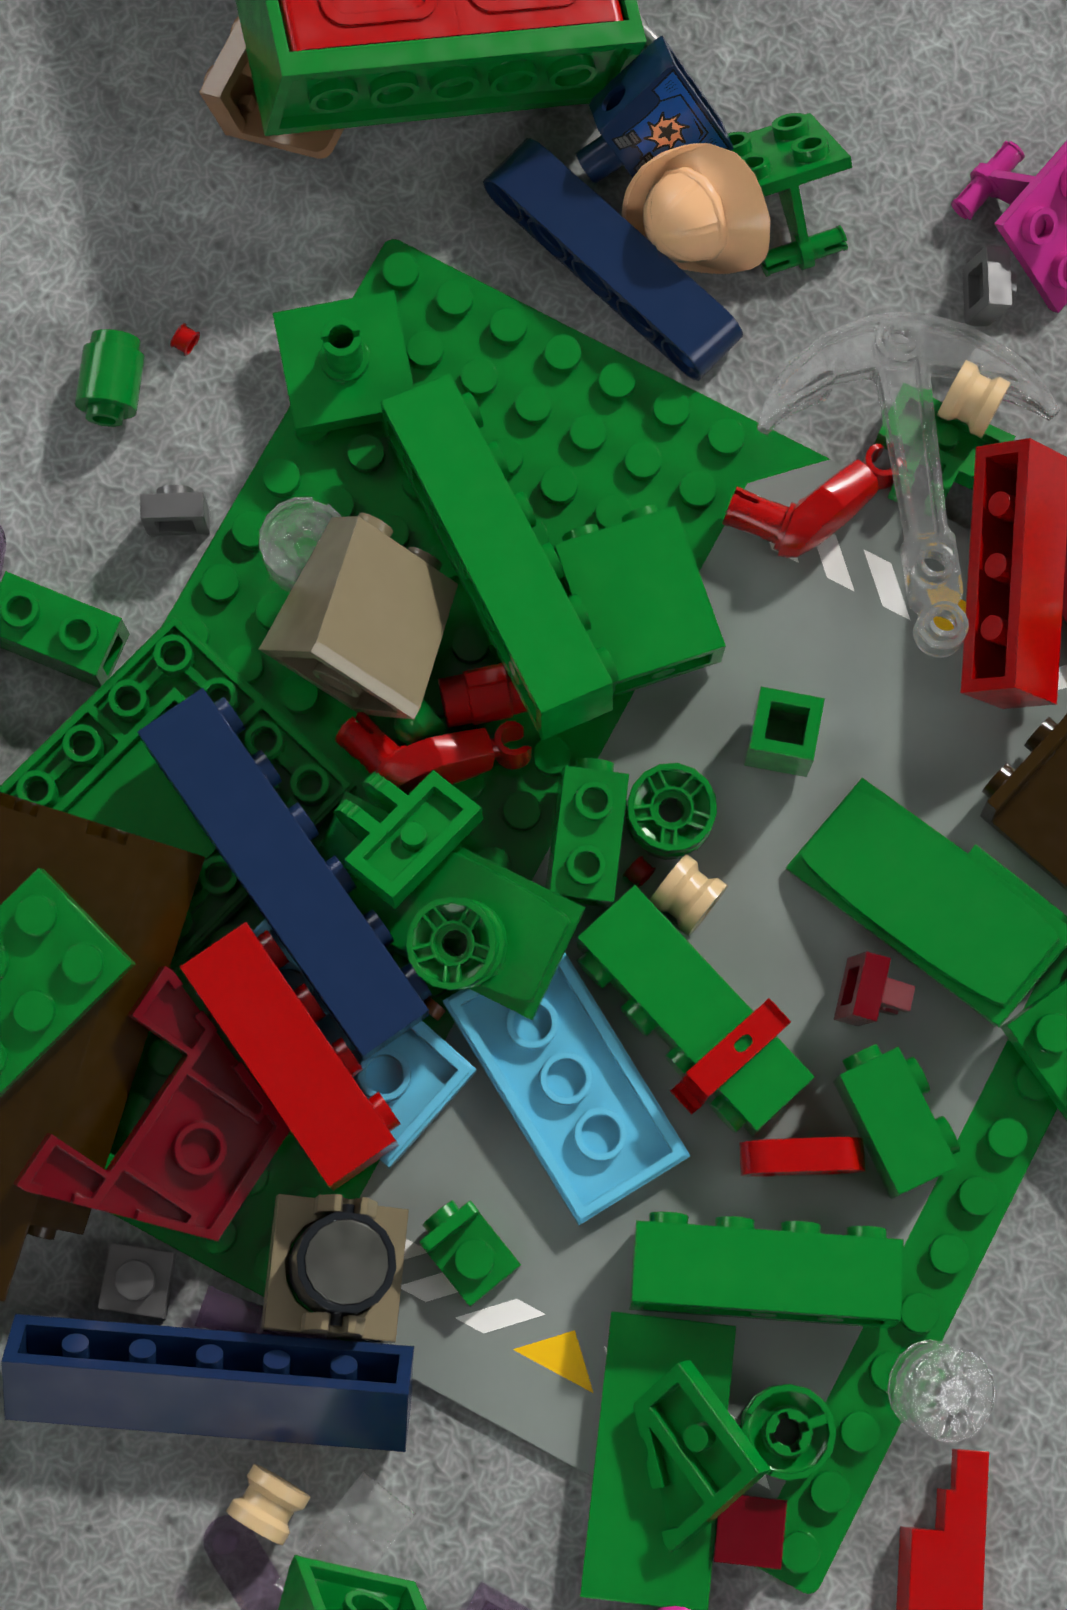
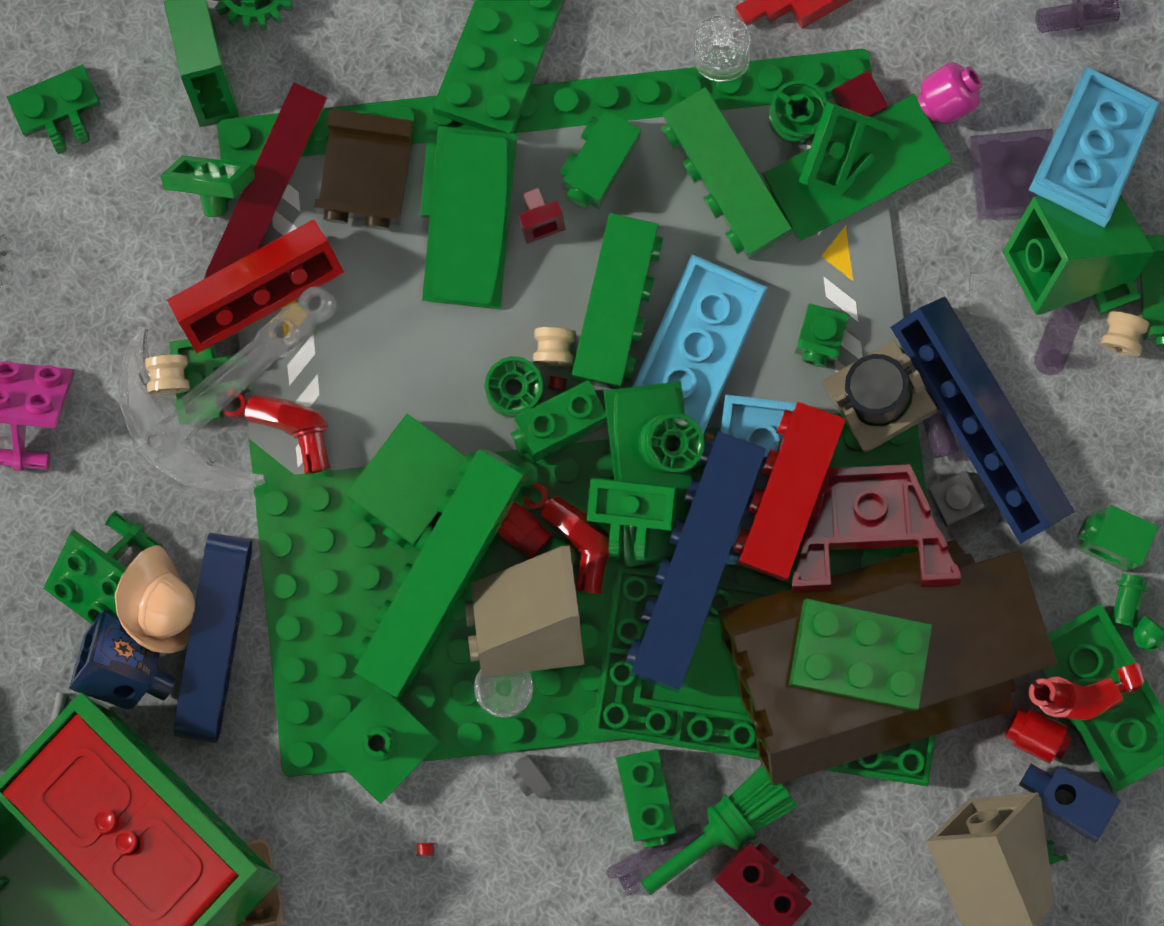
camera: 125 degrees left, 5 degrees up
(110, 377) = (479, 872): green brick -> none
(268, 1504) = (1019, 348): tan wheel -> none
(724, 1060) = (633, 263): red piece -> none
(784, 731) = (431, 352): green brick -> none
(802, 1156) = (652, 195): red beam -> none
(988, 285) = (87, 414): flat silver plate -> none

